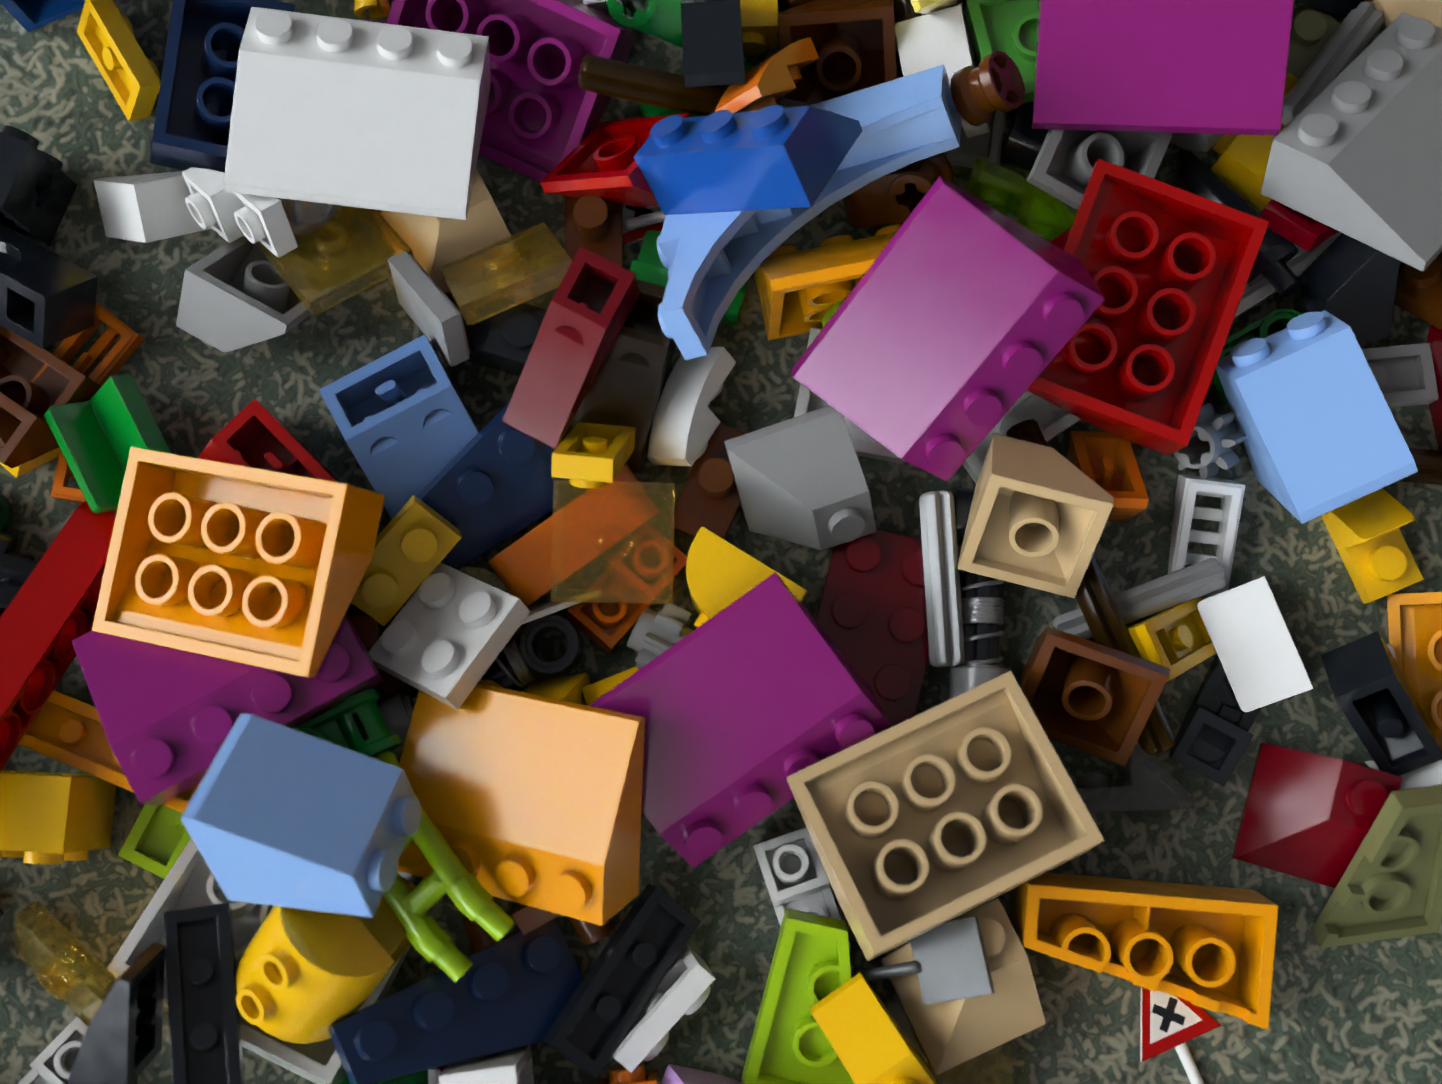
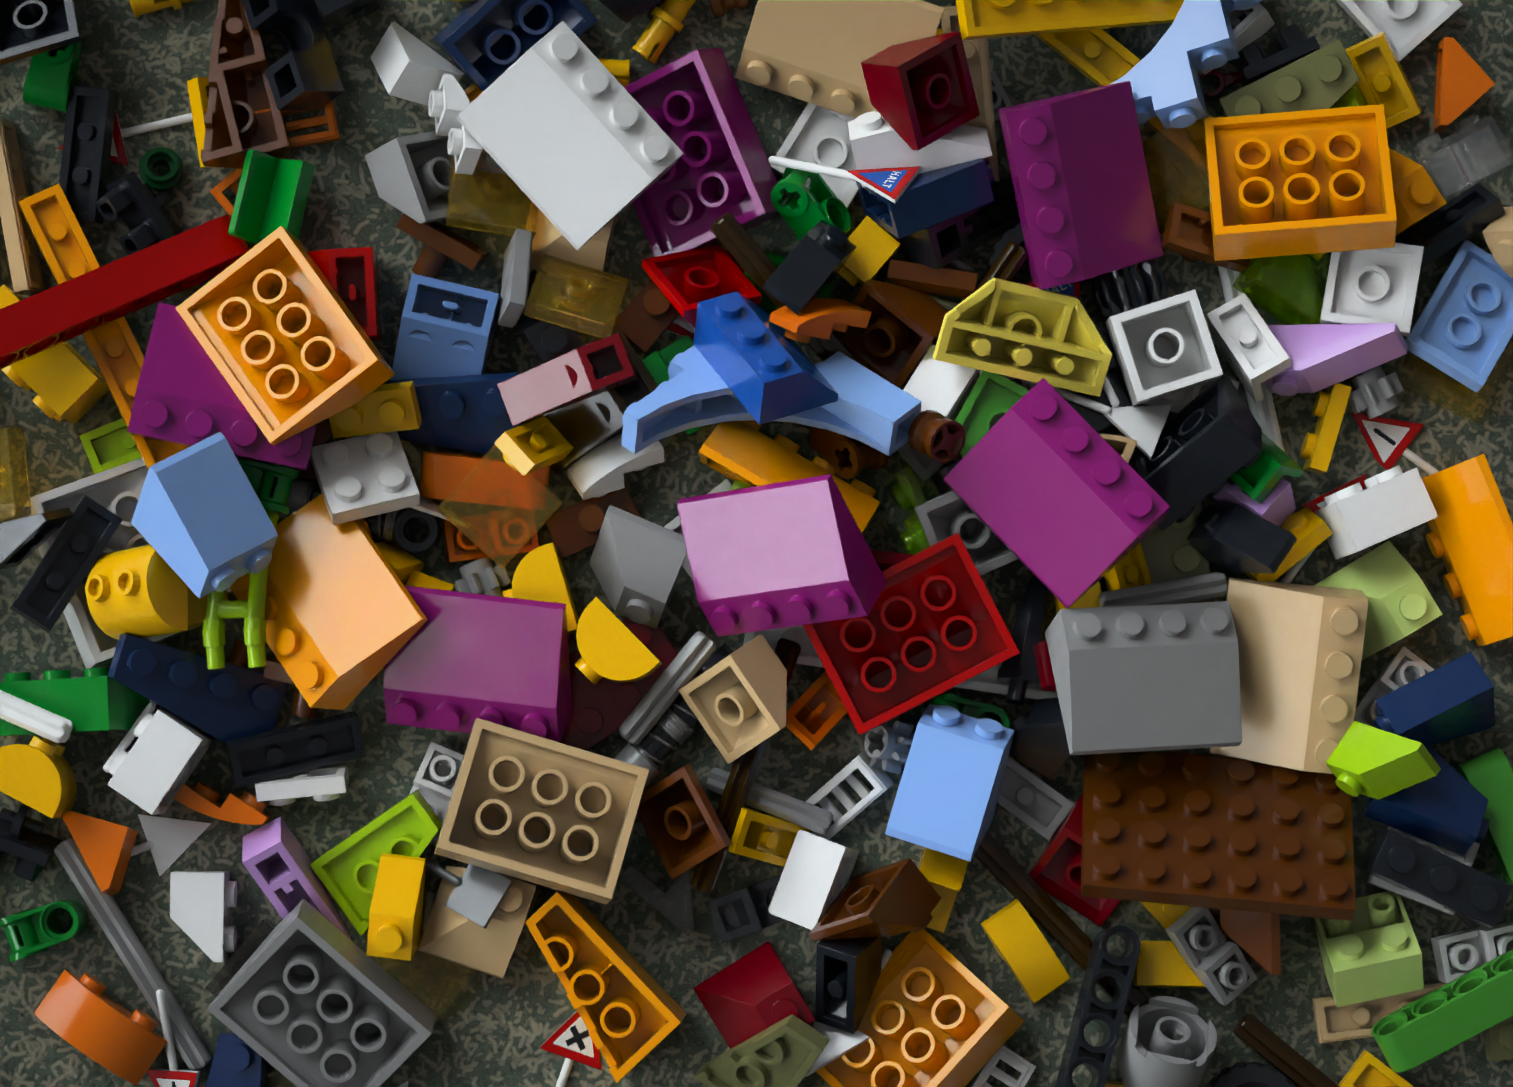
camera: 40 degrees right, 5 degrees up
(326, 347) = (439, 245): none -> reddish brown tile
(857, 580) = (610, 647): none -> yellow brick
(1349, 603) = (879, 904): none -> reddish brown slope

